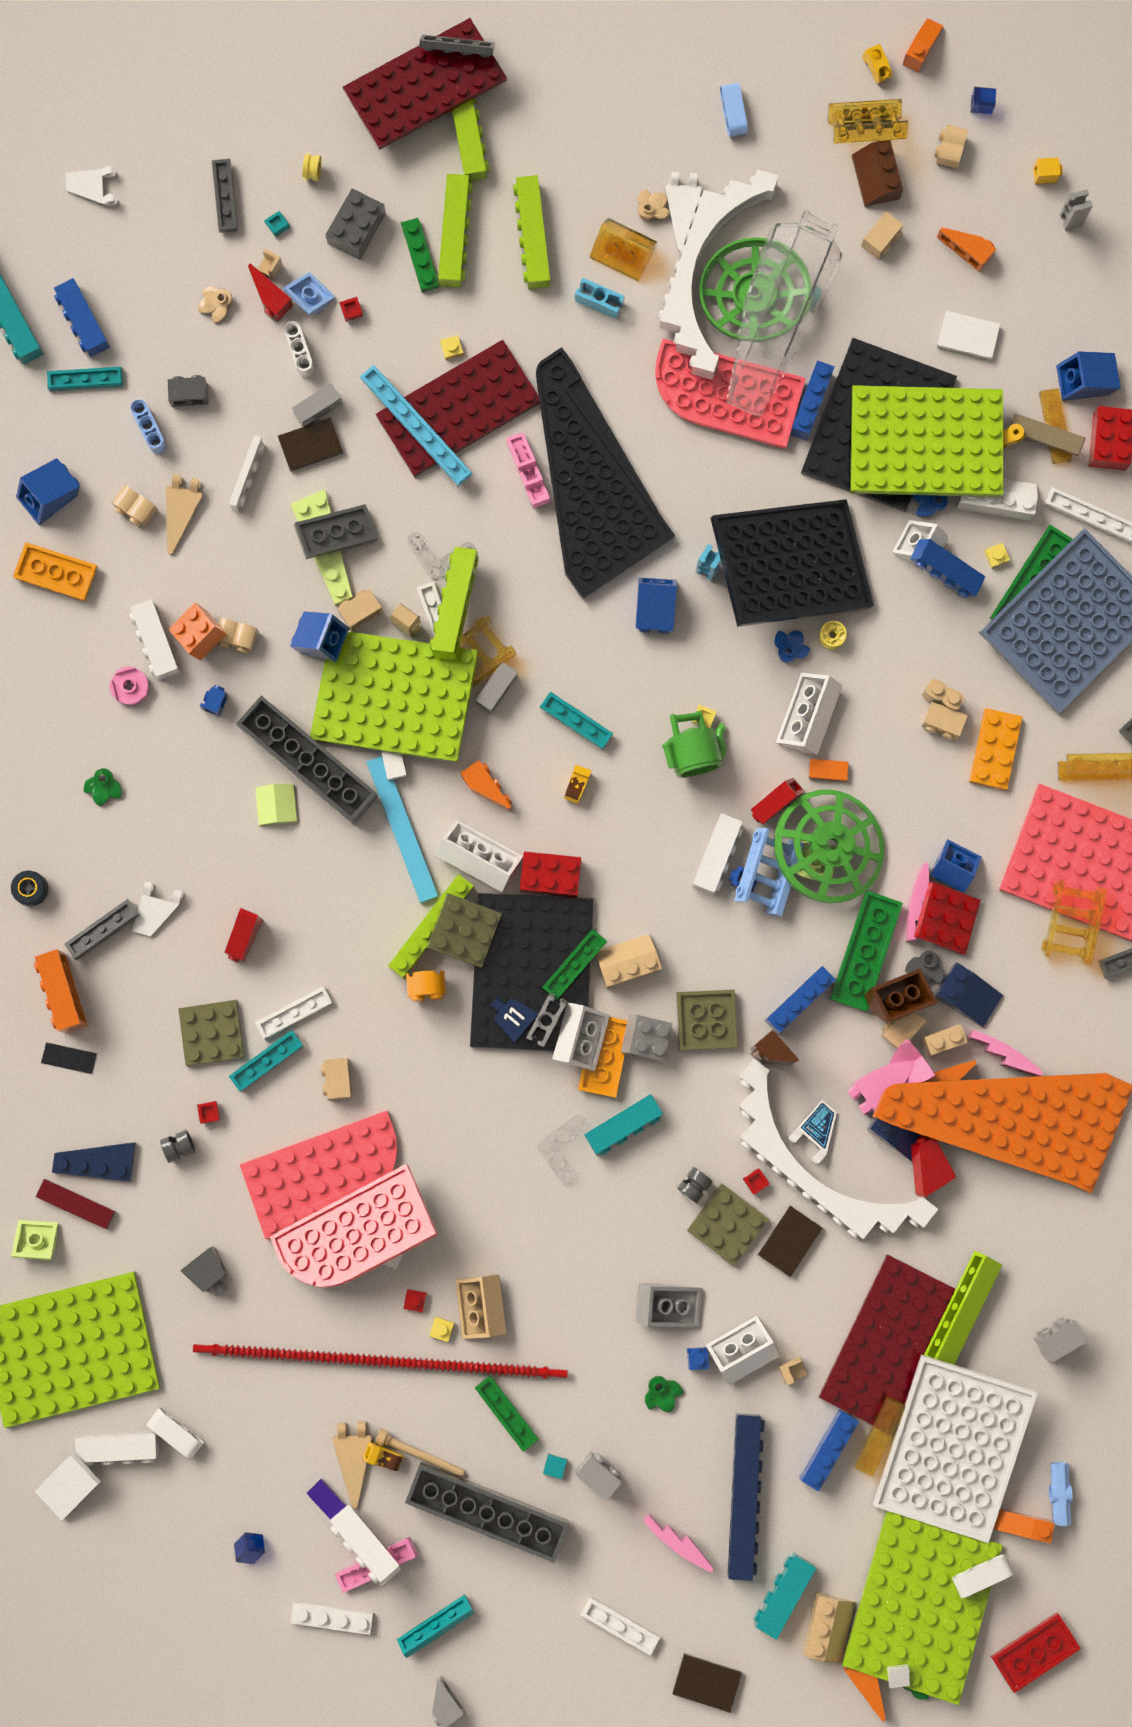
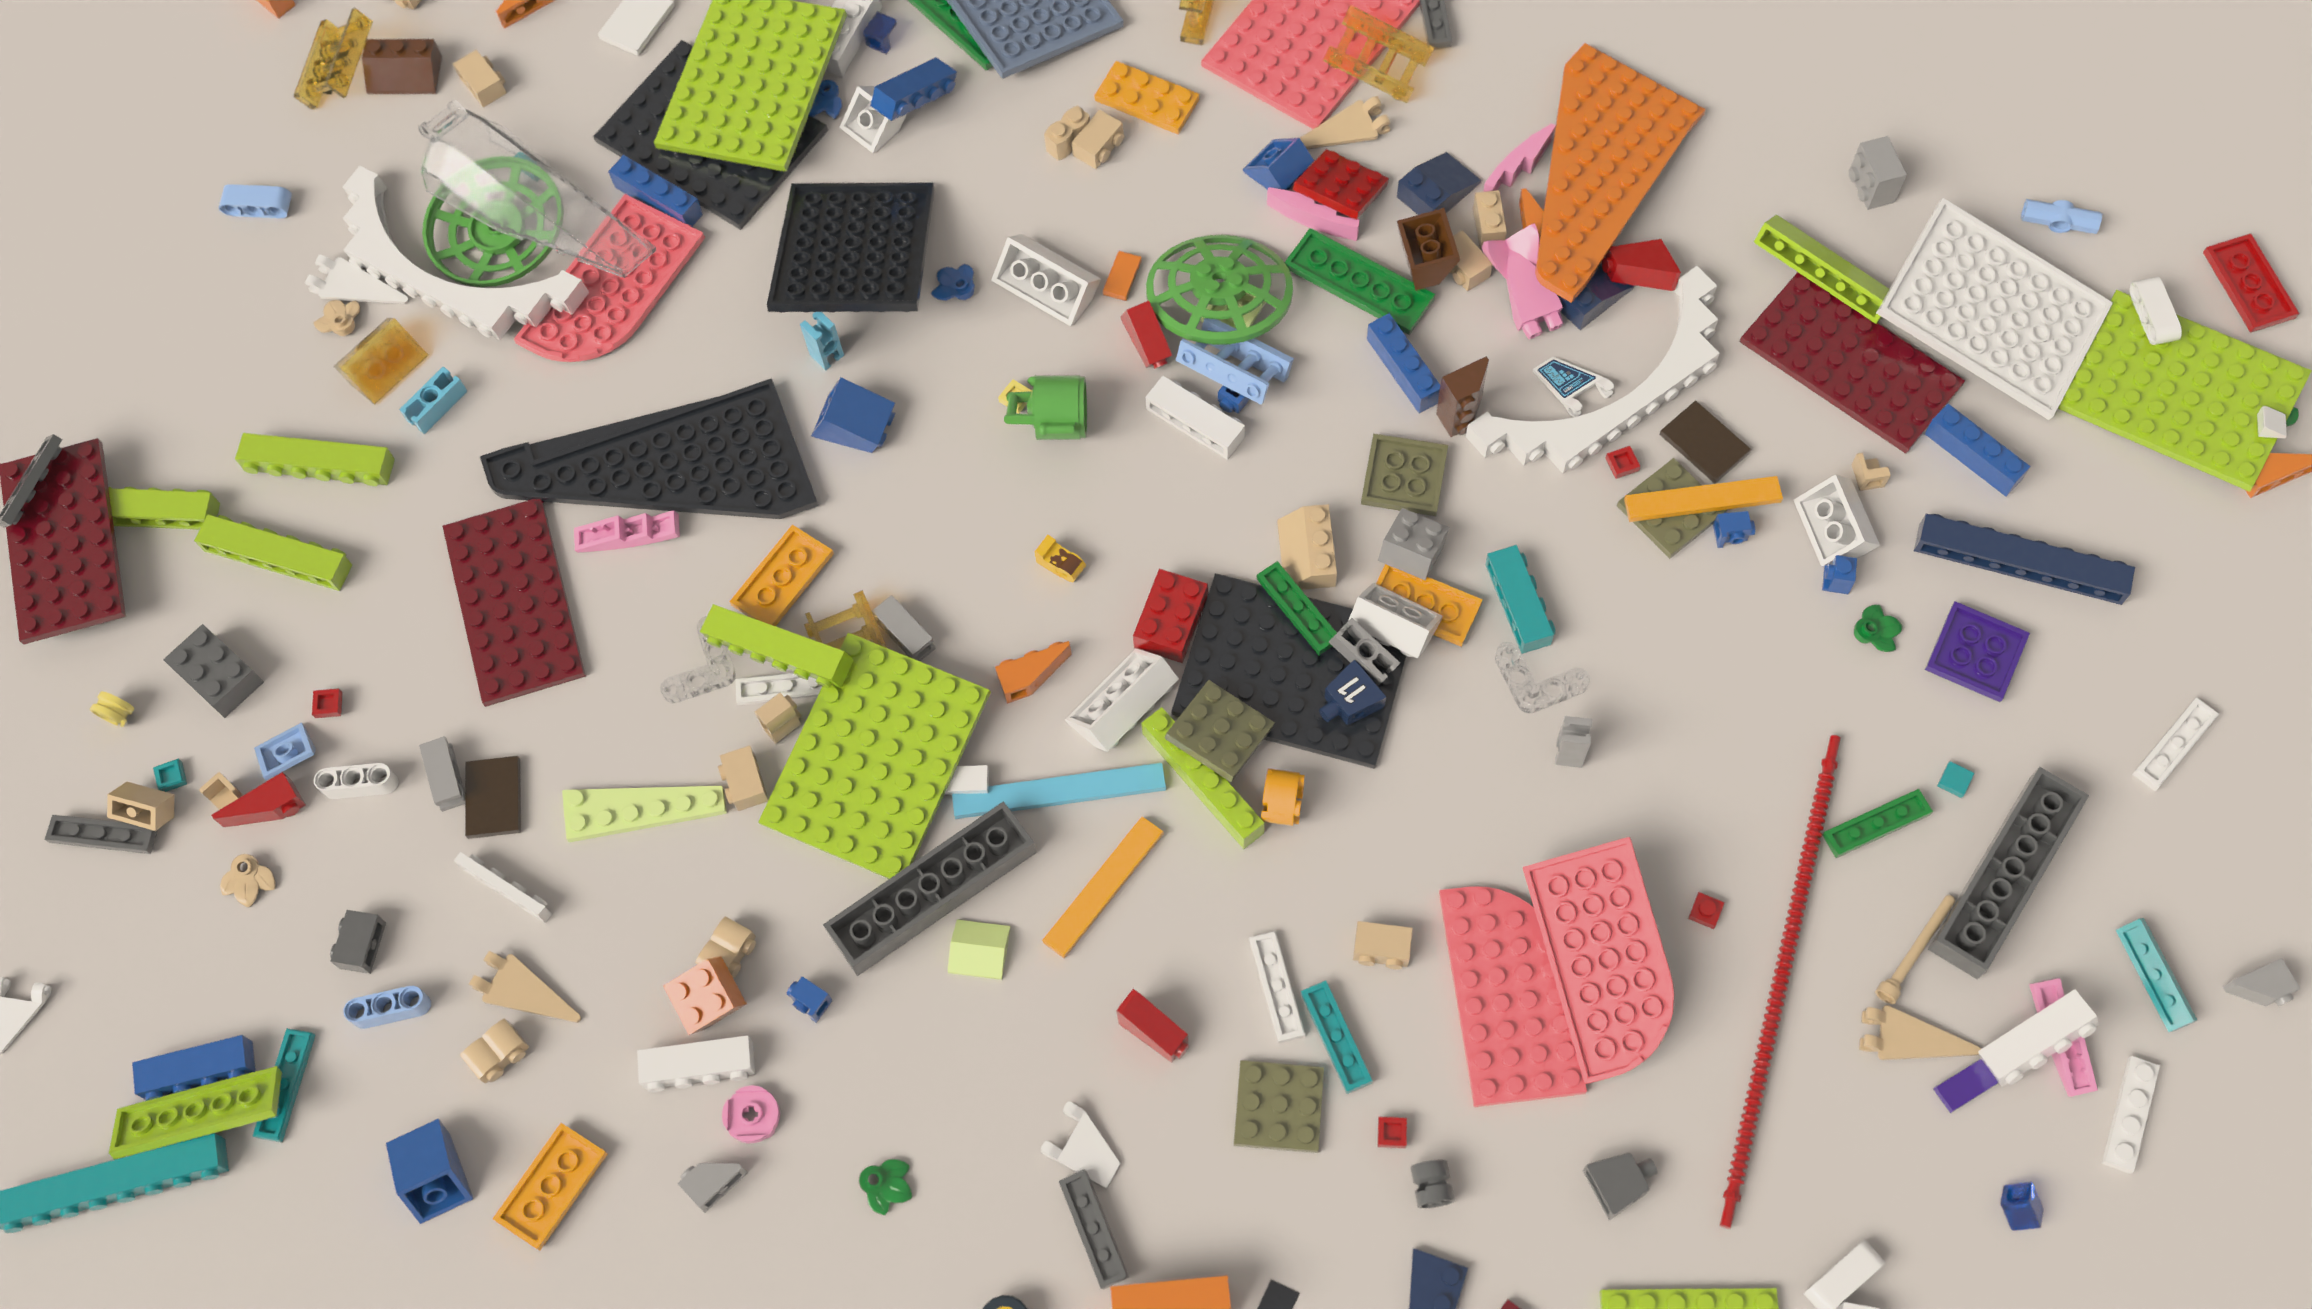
camera: 70 degrees left, 15 degrees down
(50, 331) = (195, 1112): none -> lime plate
(78, 672) = (710, 1182): none -> light grey slope
(247, 214) = (140, 806): none -> tan brick
(319, 635) = (762, 833): blue slope -> none
(335, 531) = (626, 784): dark grey plate -> none
(339, 877) = (1102, 887): none -> light orange tile
(383, 1456) = (1917, 993): yellow leg -> none
(416, 425) = (517, 652): medium azure tile -> none
(419, 255) = (288, 604): green plate -> none
(441, 1329) = (1750, 884): light yellow plate -> none
(451, 347) = (428, 591): light yellow plate -> none
(480, 1306) = (1729, 825): tan slope -> none
(512, 1183) = (1573, 741): none -> light grey piece
(518, 590) = (782, 577): none -> light orange plate
(576, 720) = (975, 544): teal plate -> none
(598, 1475) = (1977, 720): light grey brick -> none
(660, 1470) = (1977, 651): none -> dark purple plate
(668, 1305) = (1765, 596): light grey slope -> none
(684, 1546) = (2077, 645): bright pink slope -> none
(695, 1184) = (1611, 526): dark grey wheel -> none
(707, 1682) = (2258, 655): dark brown tile -> none
(718, 1274) = (1733, 528): none -> blue brick
(735, 1246) = (1703, 498): none -> light orange tile
(784, 1595) = (2155, 539): teal brick -> none
(828, 1628) = (2200, 502): tan slope -> none
(837, 629) = (949, 228): light yellow wheel -> none
(877, 63) = (266, 38): yellow leg -> none
(880, 1436) = (1968, 387): clear yellow plate -> none
(930, 971) = (1388, 228): dark grey plate -> none
(997, 555) = (913, 47): light yellow plate -> none
(1001, 525) = (878, 32): none -> clear blue panel
(1005, 911) = (1349, 126): none -> tan flag
(1025, 1525) = (2098, 256): orange slope -> none

